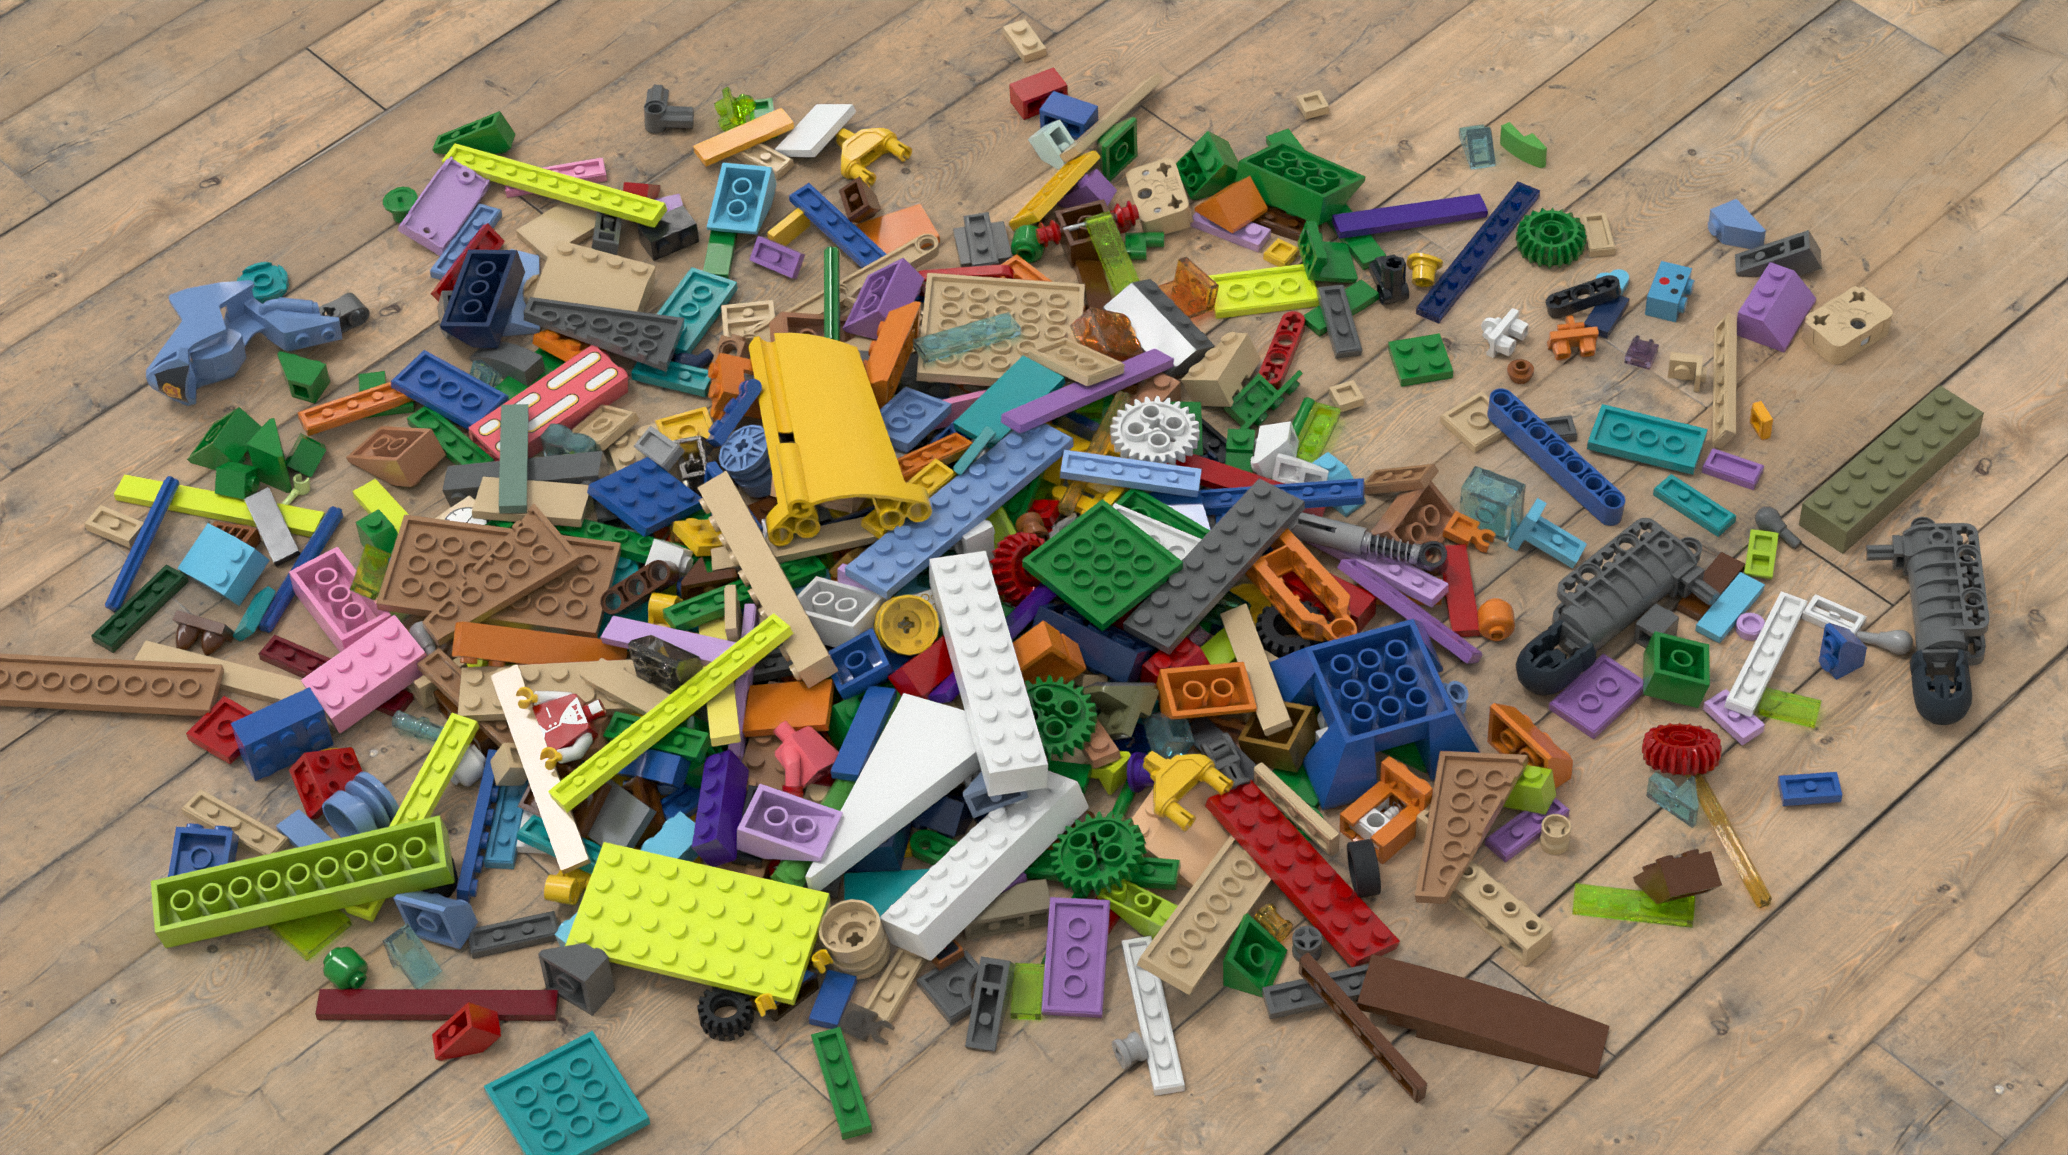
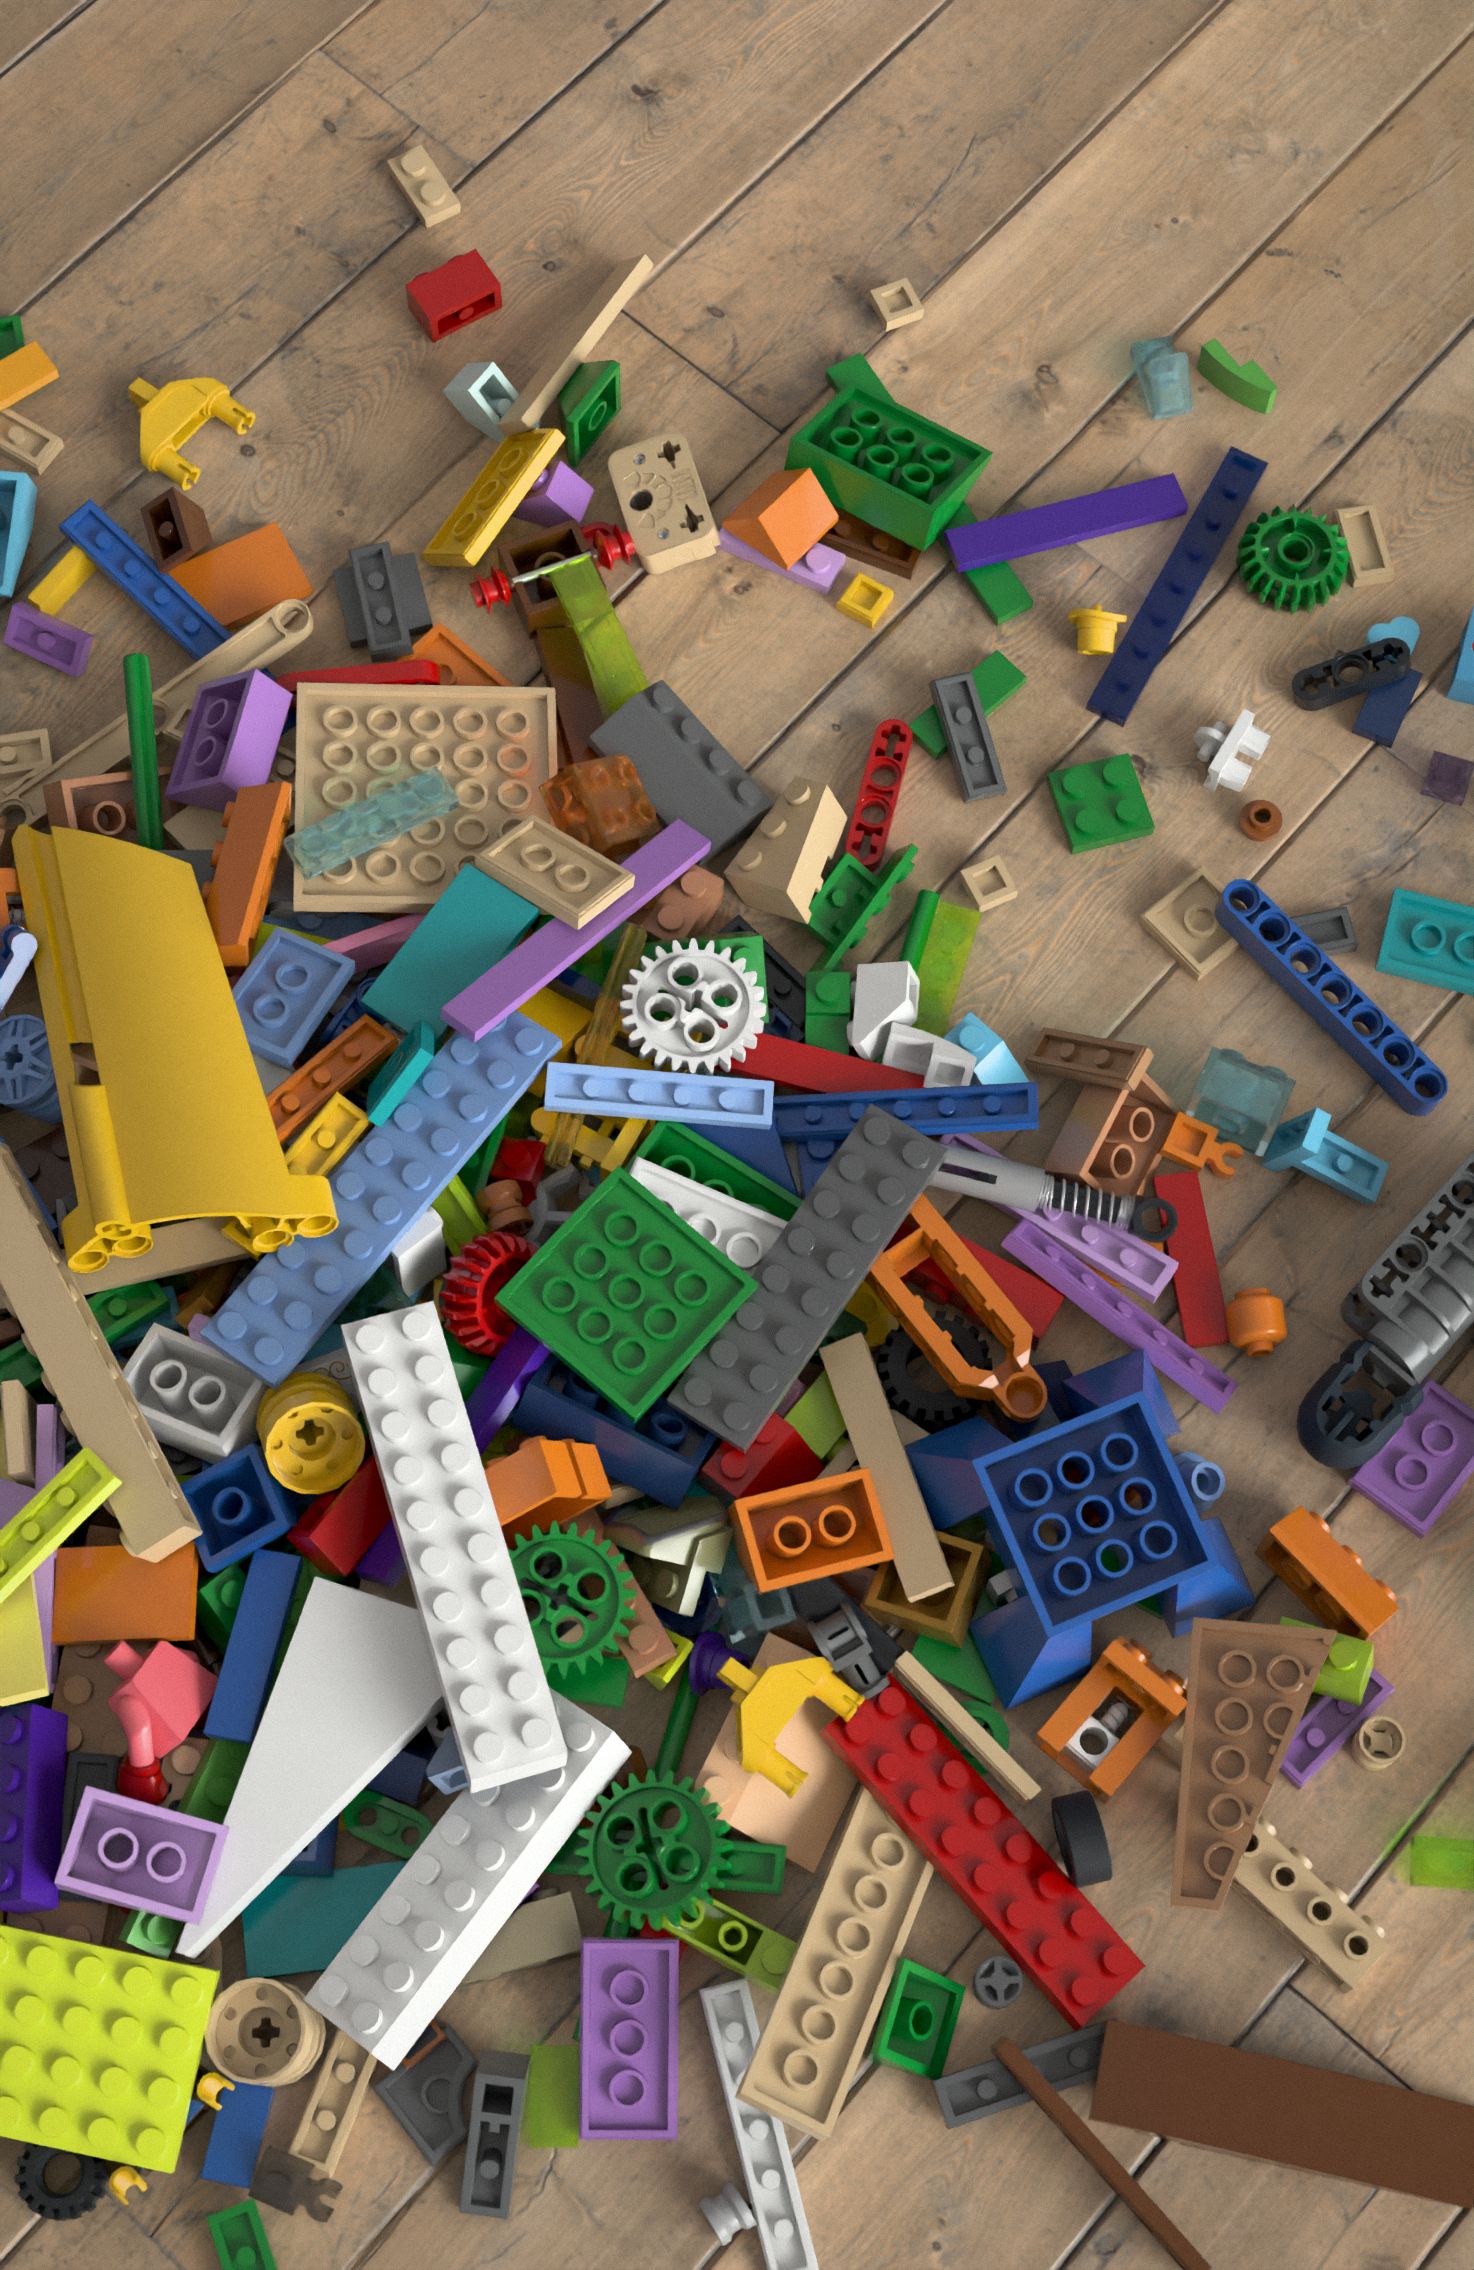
camera: 10 degrees left, 20 degrees up
(816, 130) = (94, 382): white tile -> none
(1026, 244) = (452, 600): green head -> none
(1074, 113) = (507, 338): brick -> none
(1138, 242) = (633, 587): green piece -> none
(1191, 289) = (722, 688): clear orange bracket -> none
(1208, 167) = (738, 437): green slope -> none
(1264, 291) = (840, 674): neon yellow tile -> none
(1273, 922) = (925, 1939): clear yellow bush -> none
(1325, 259) = (938, 614): green bracket -> none
(1390, 278) = (1044, 652): black piece -> none
(1572, 335) = (1321, 765): orange hips -> none

